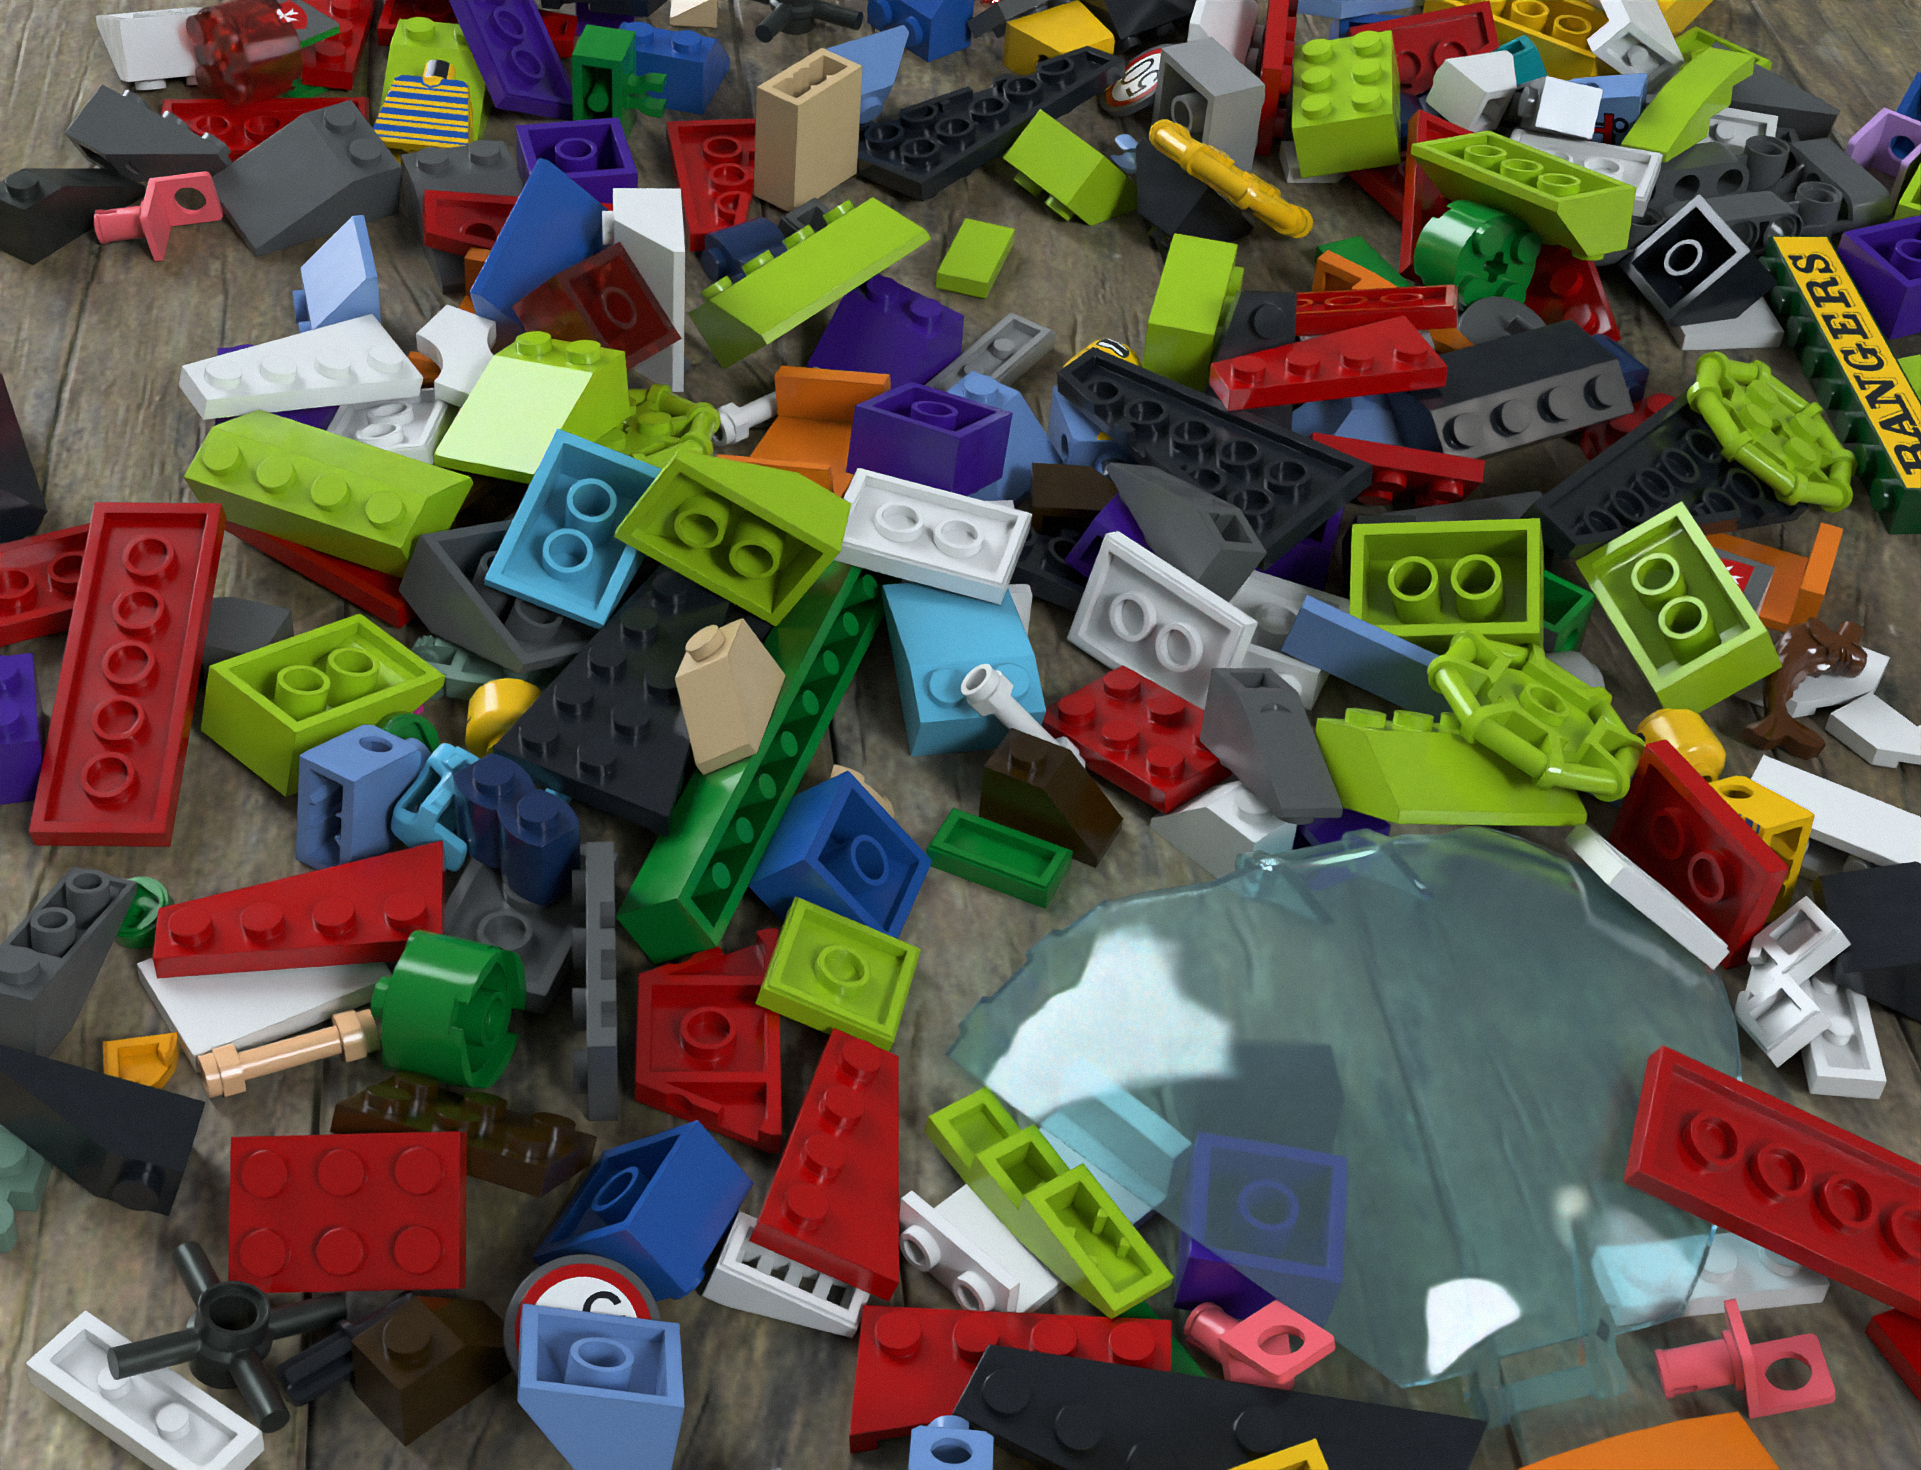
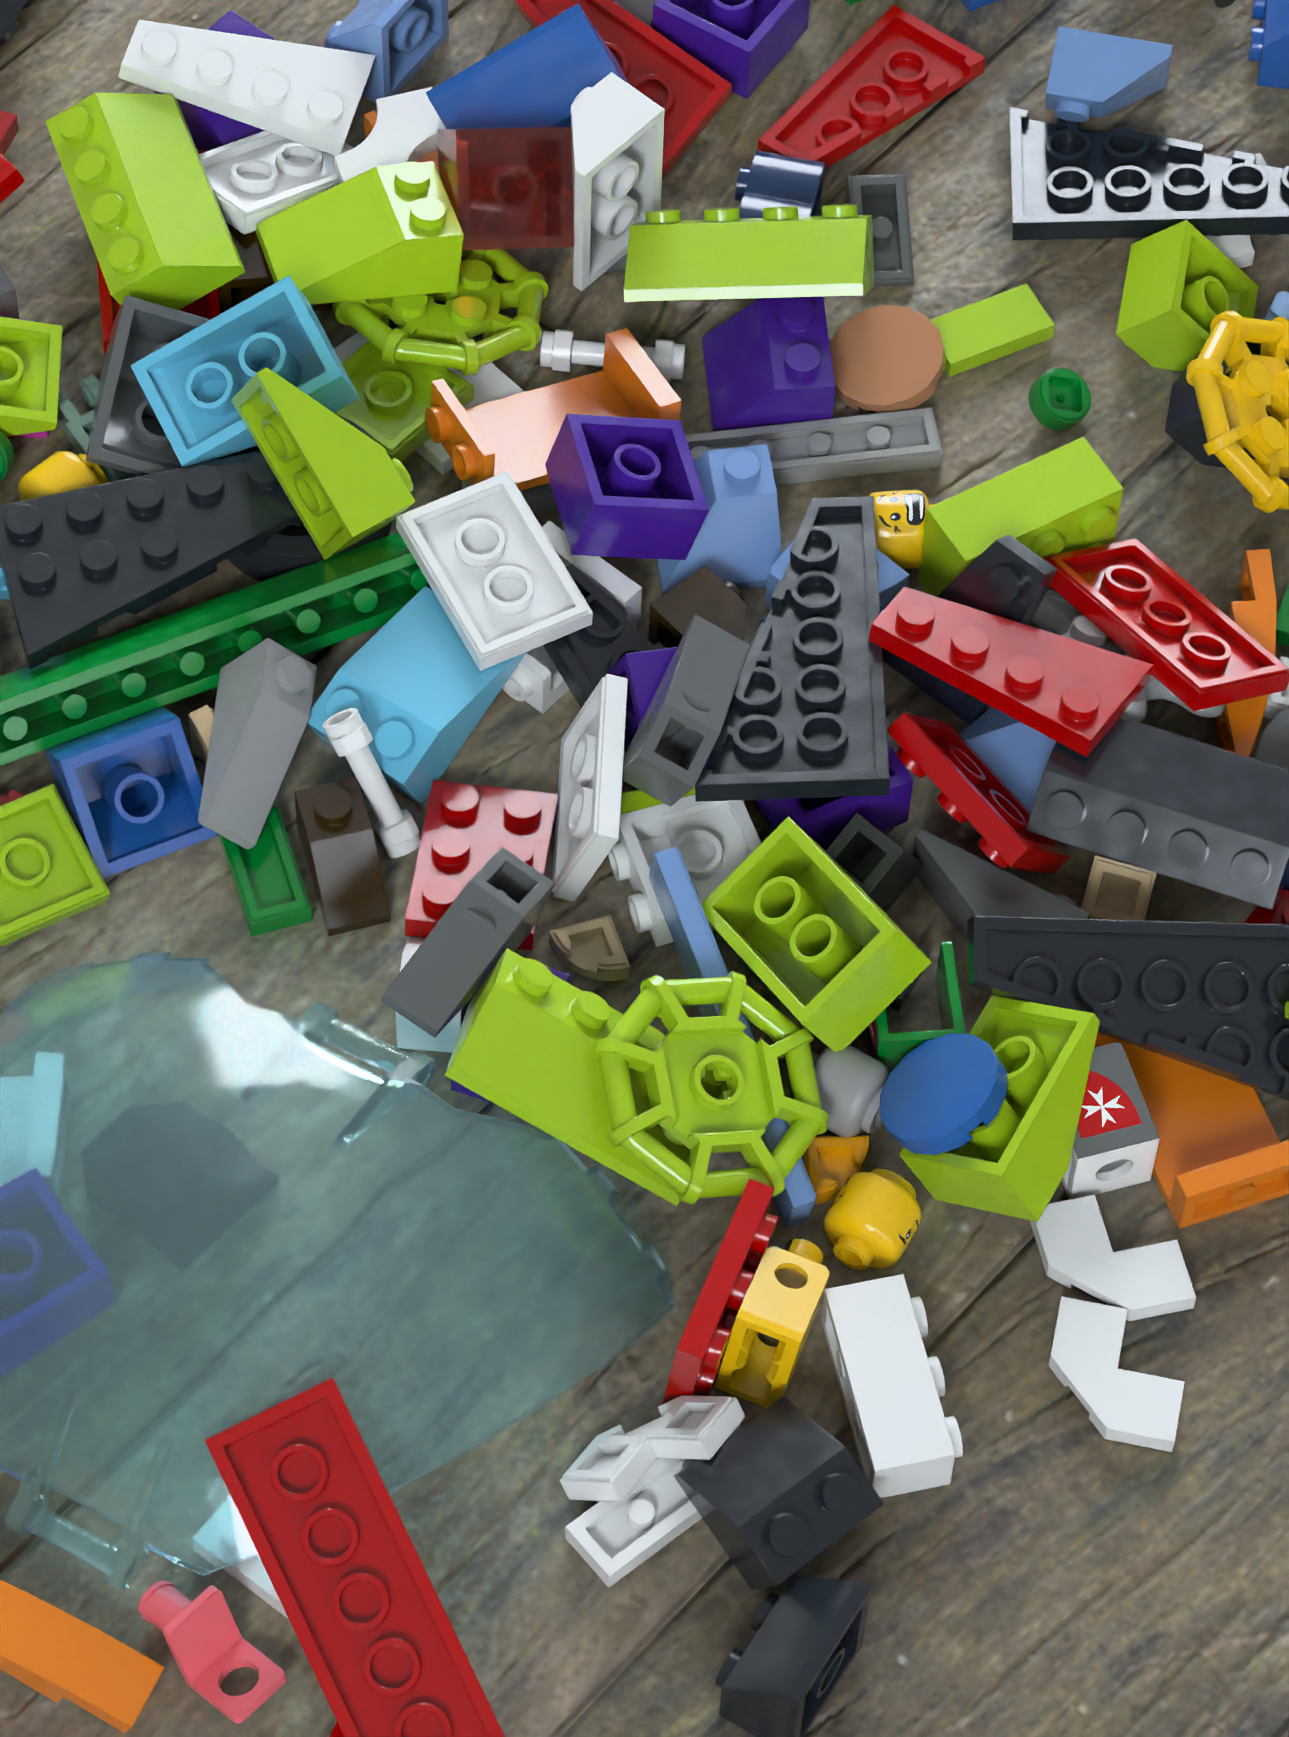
camera: 50 degrees right, 15 degrees up
(727, 693) = (177, 589): tan slope -> none
(807, 129) = (953, 102): tan brick -> none
(897, 751) = (253, 737): none -> light grey slope
(961, 288) = (887, 359): none -> nougat tile
(1076, 263) = (1059, 399): none -> green tile
(1513, 474) = (1118, 890): none -> tan slope
(1644, 627) = (943, 1093): none -> blue tile
(1647, 895) = (600, 1287): white tile -> none
(1803, 651) = (1078, 1224): reddish brown animal -> none

